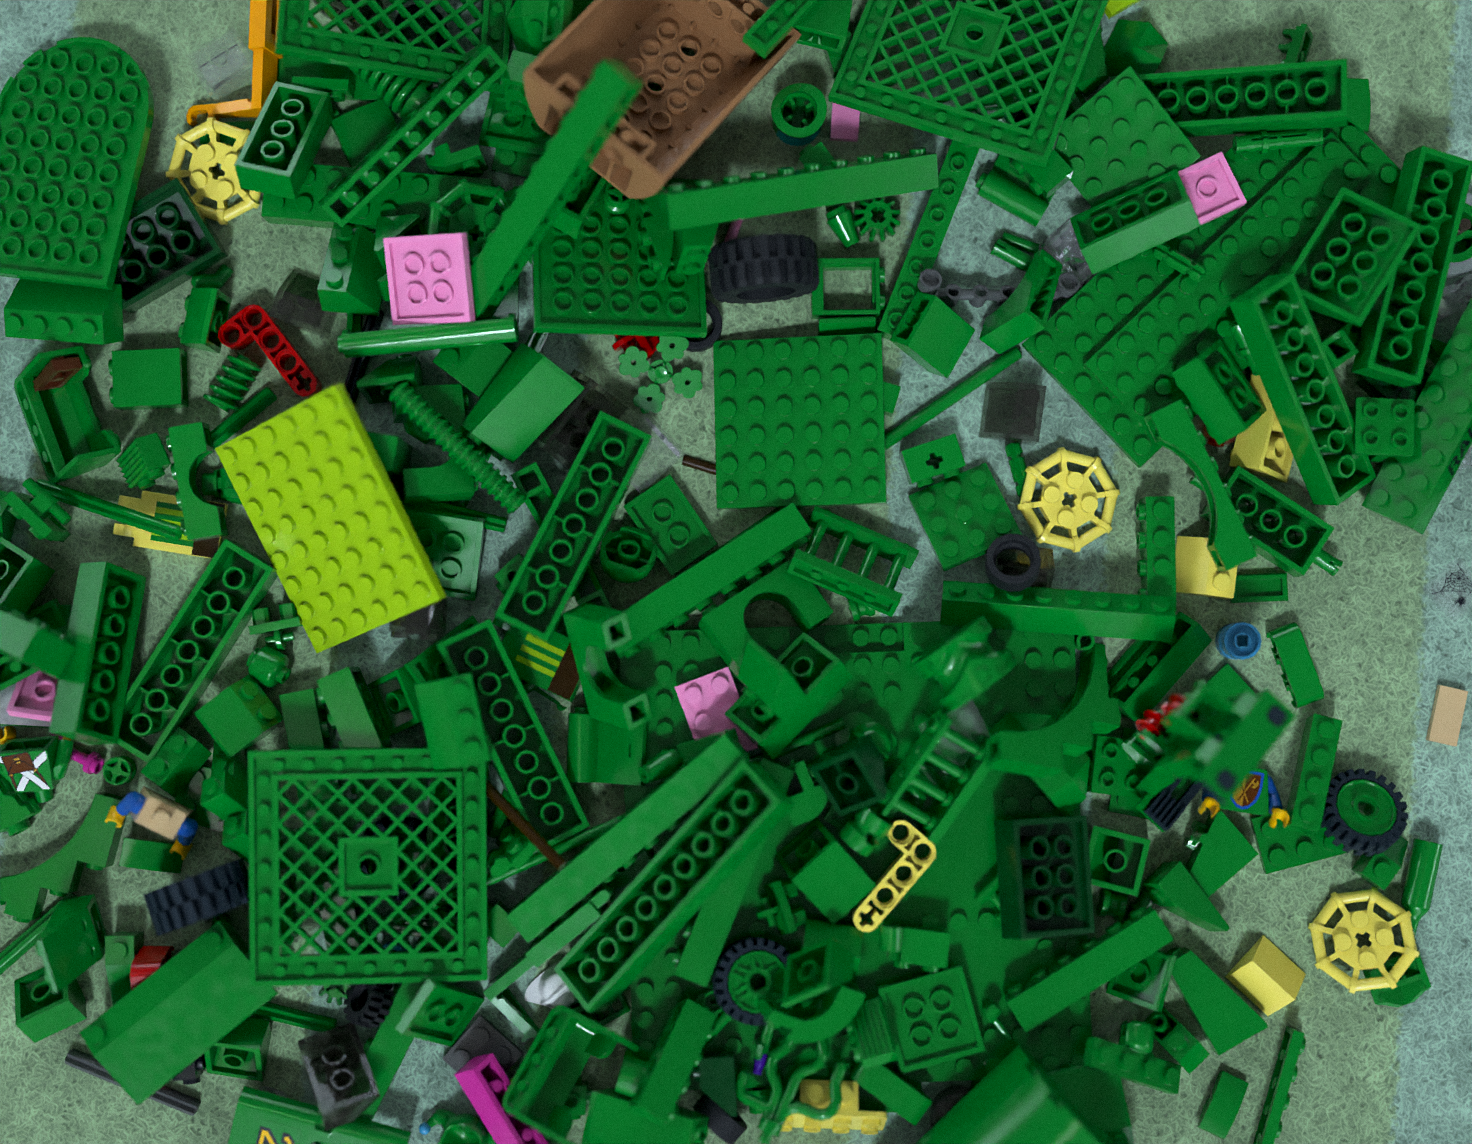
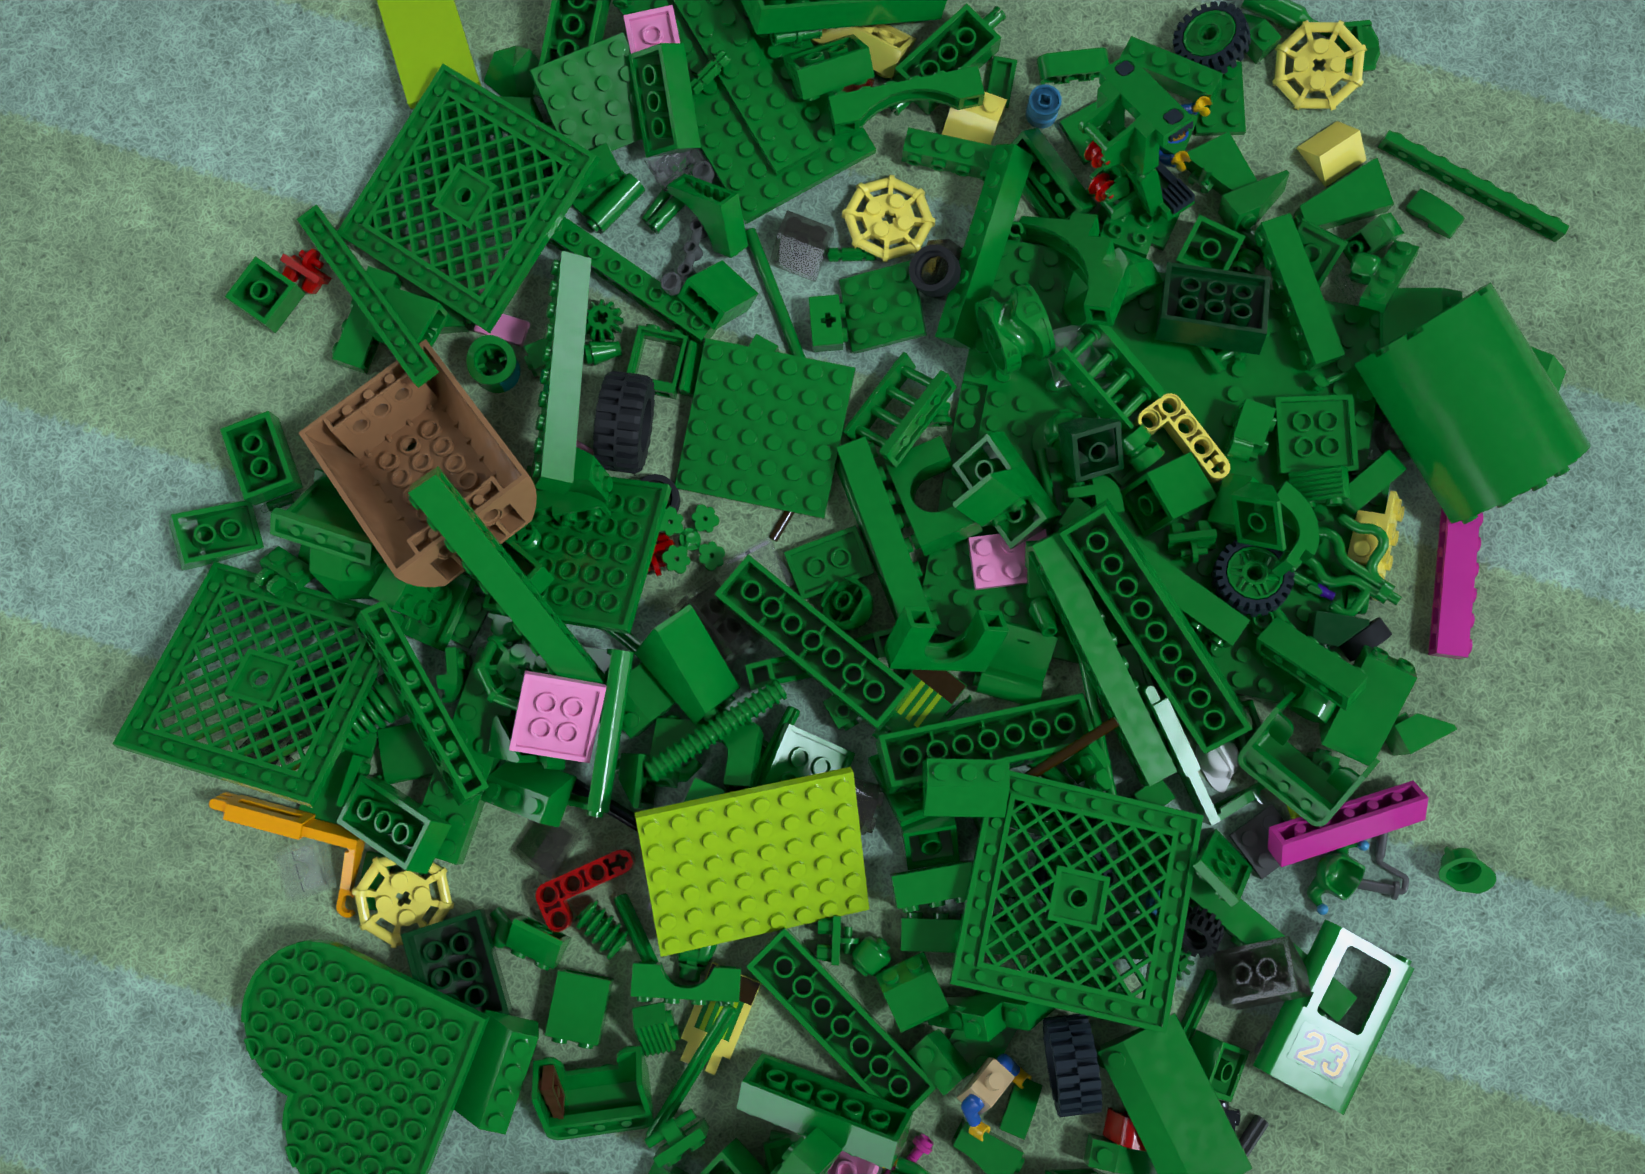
camera: 75 degrees left, 5 degrees down
(113, 769) = (937, 1124): green wheel -> none

